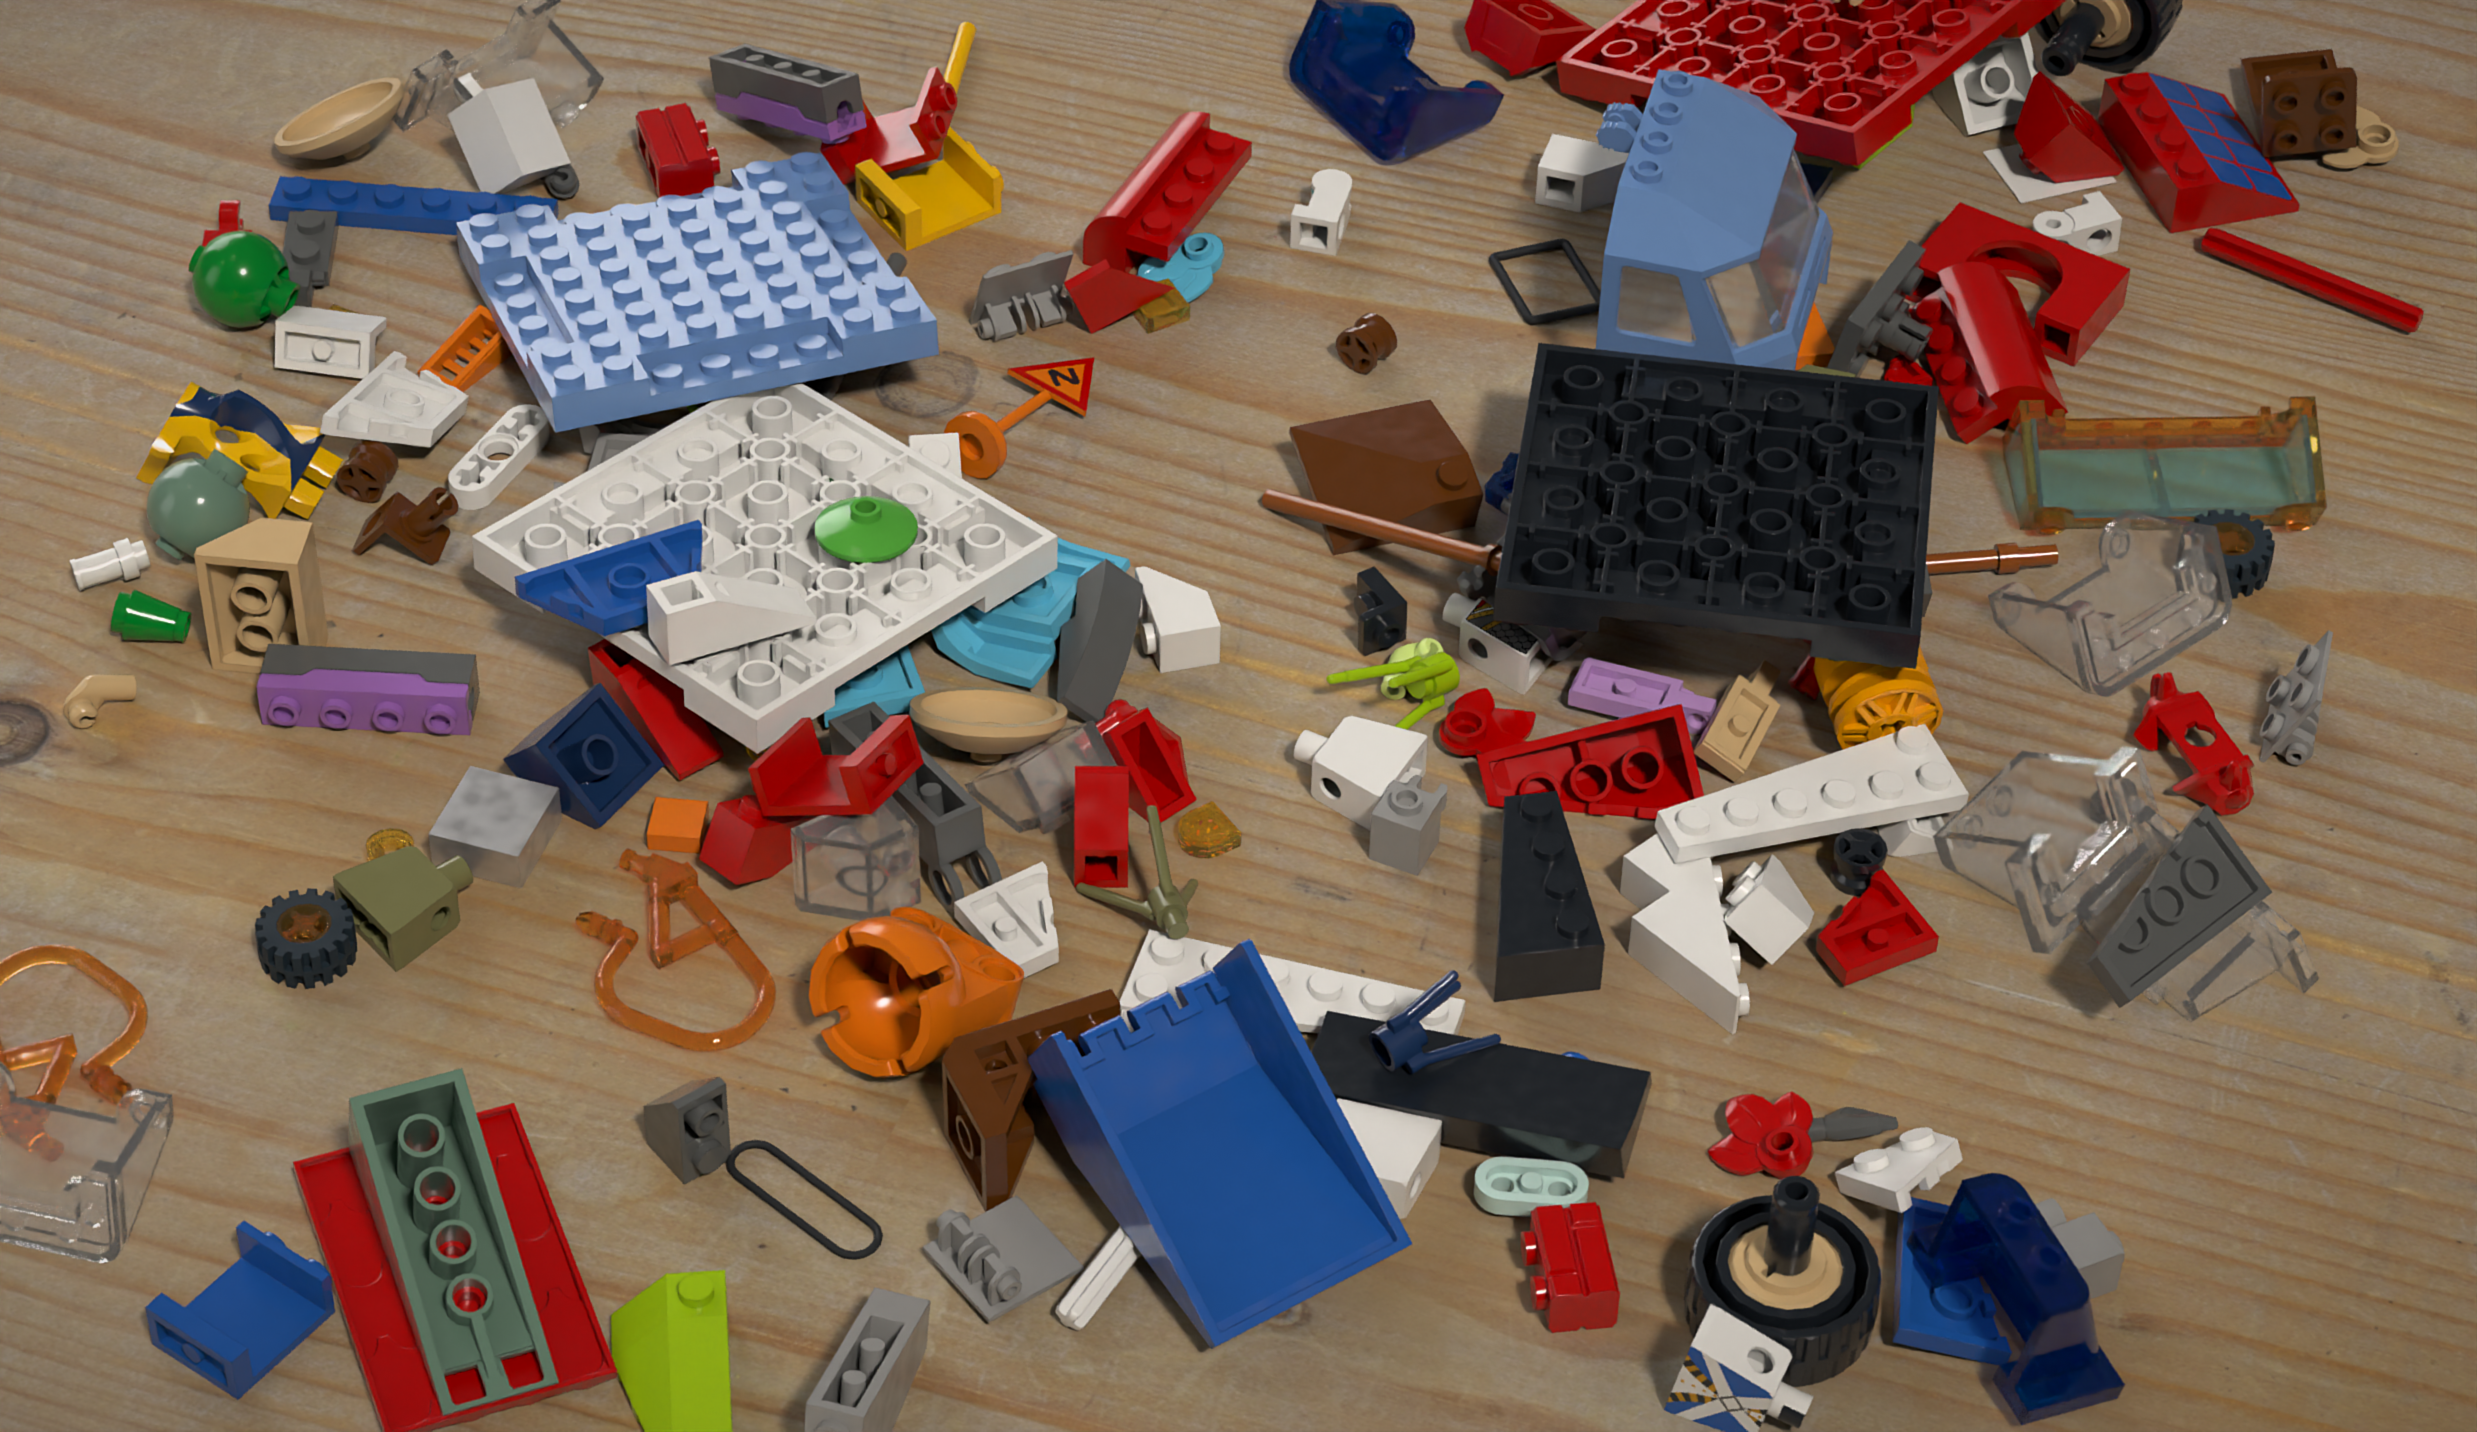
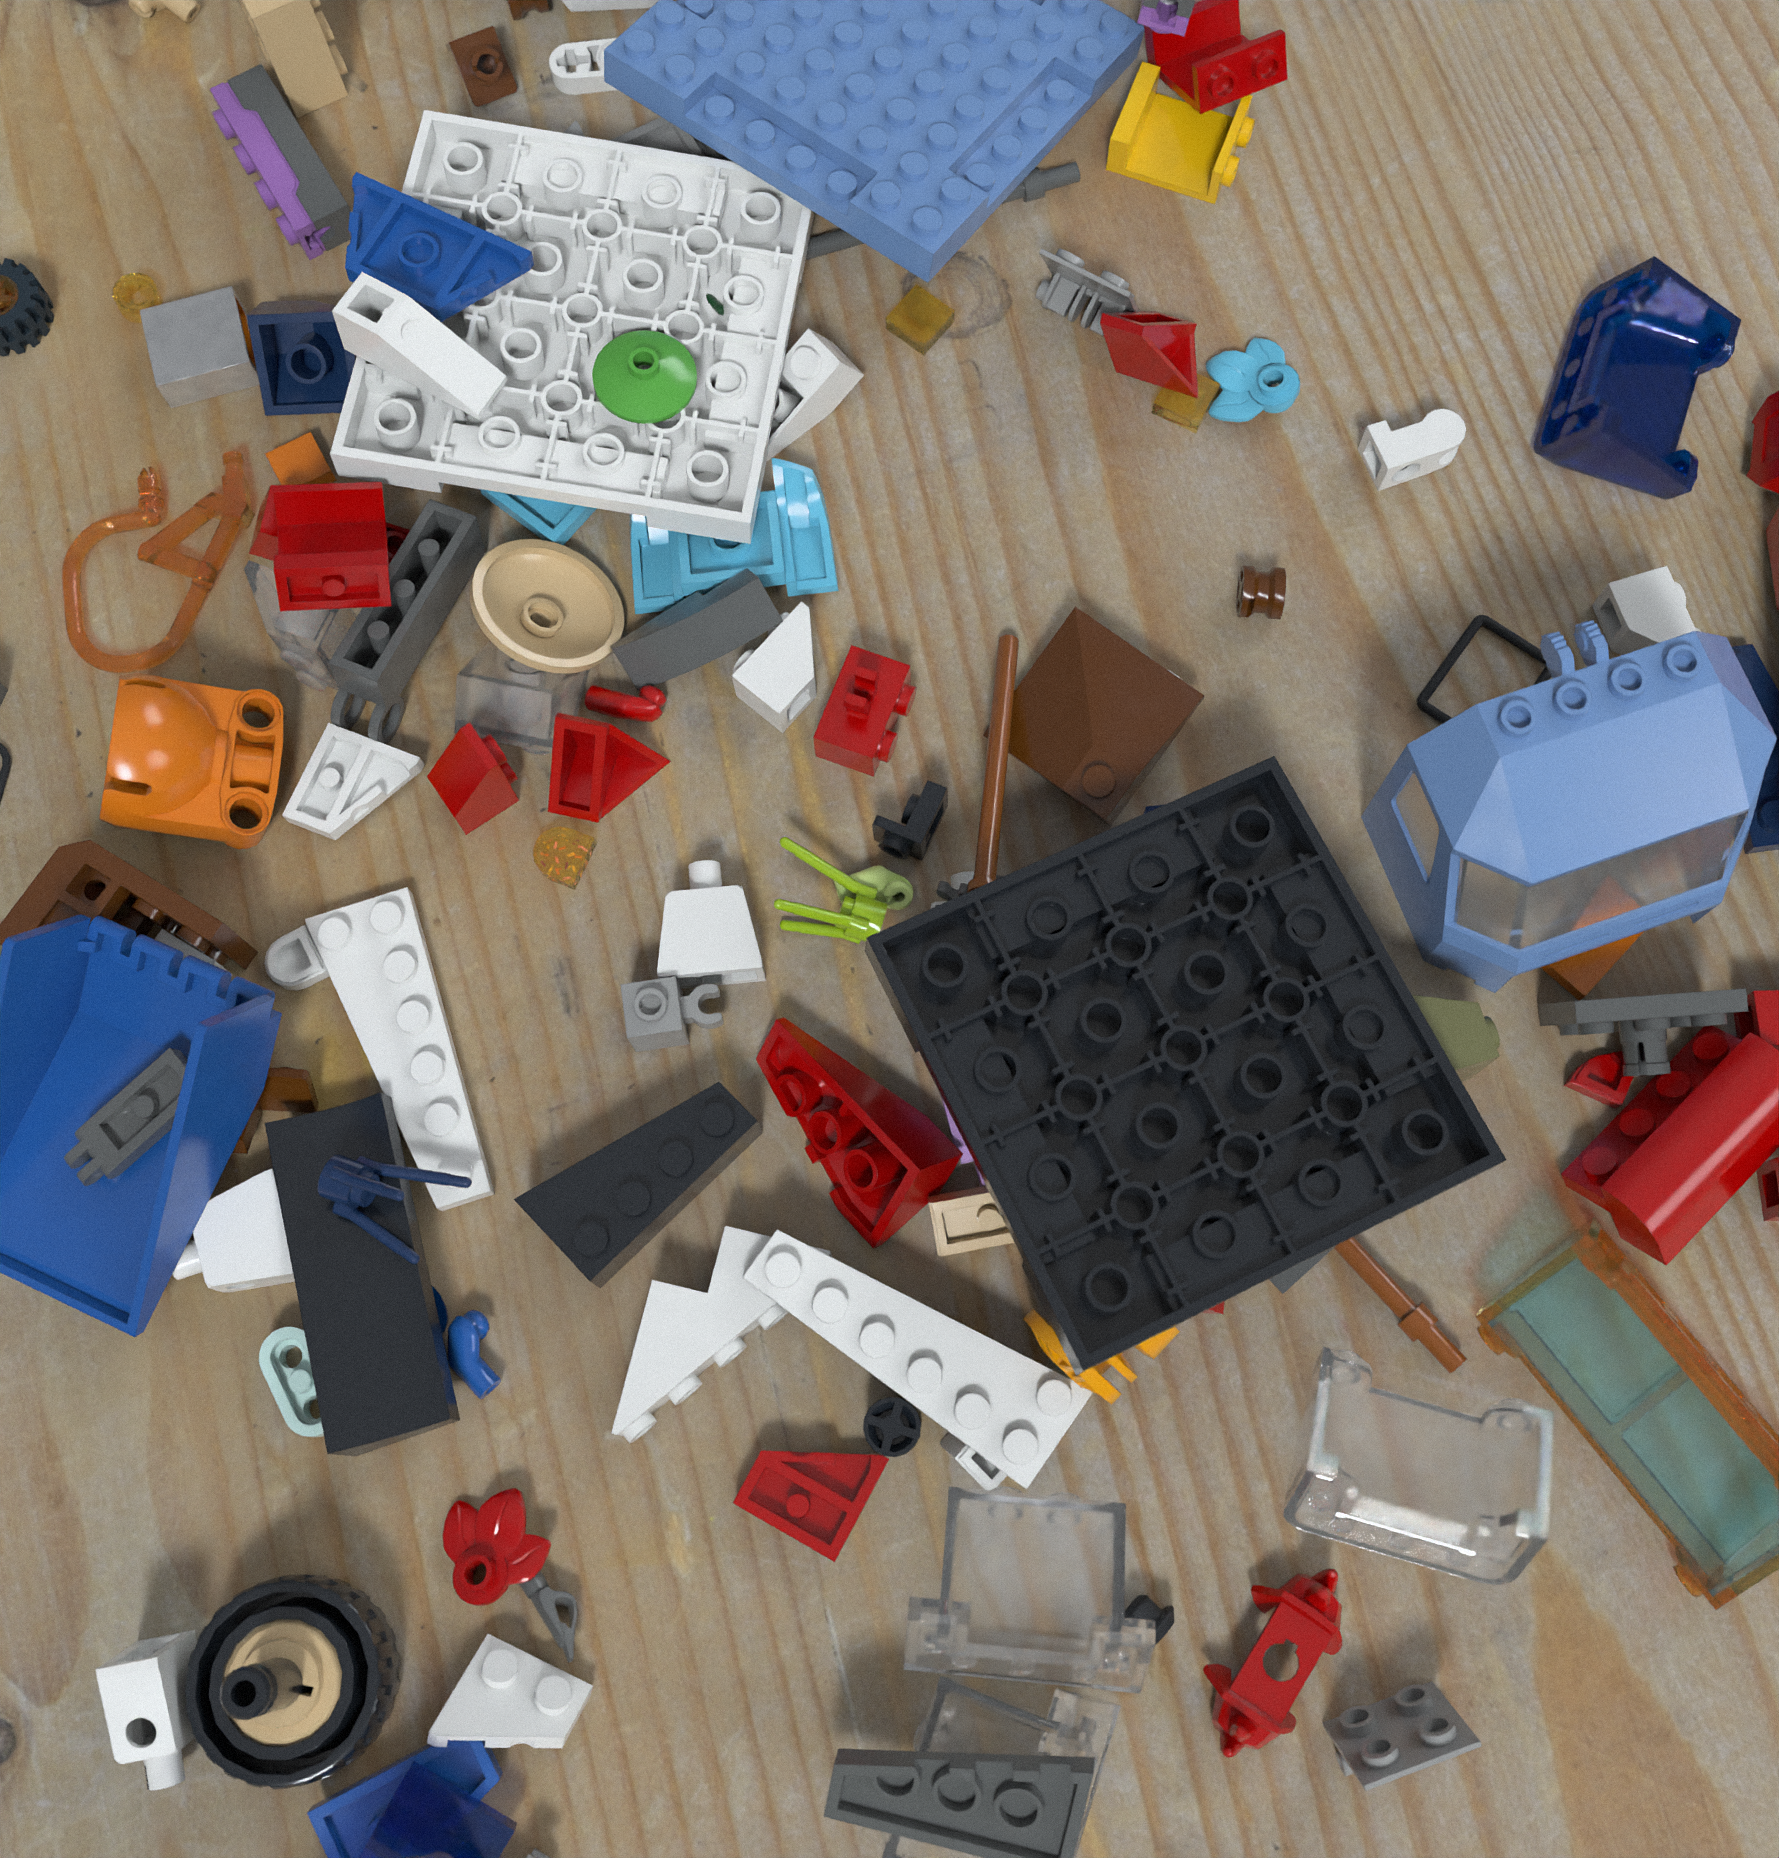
camera: 60 degrees right, 30 degrees up
(403, 902) = (73, 343): olive torso -> none
(932, 406) = (920, 319): none -> clear yellow tile
(959, 54) = (1362, 48): yellow bar -> none
(982, 439) = (1023, 387): orange piece -> none
(1164, 901) = (422, 884): olive plant -> none
(1166, 194) = (1315, 312): red brick -> none
(1228, 1131) = (129, 1121): none -> dark grey hinge
(1255, 594) = (864, 710): none -> red brick
(1480, 727) = (851, 1007): red plate -> none
(1572, 1267) = (223, 1476): red brick -> none
(1768, 909) = (757, 1388): white slope -> none
(2244, 547) = (1607, 1532): black wheel -> none

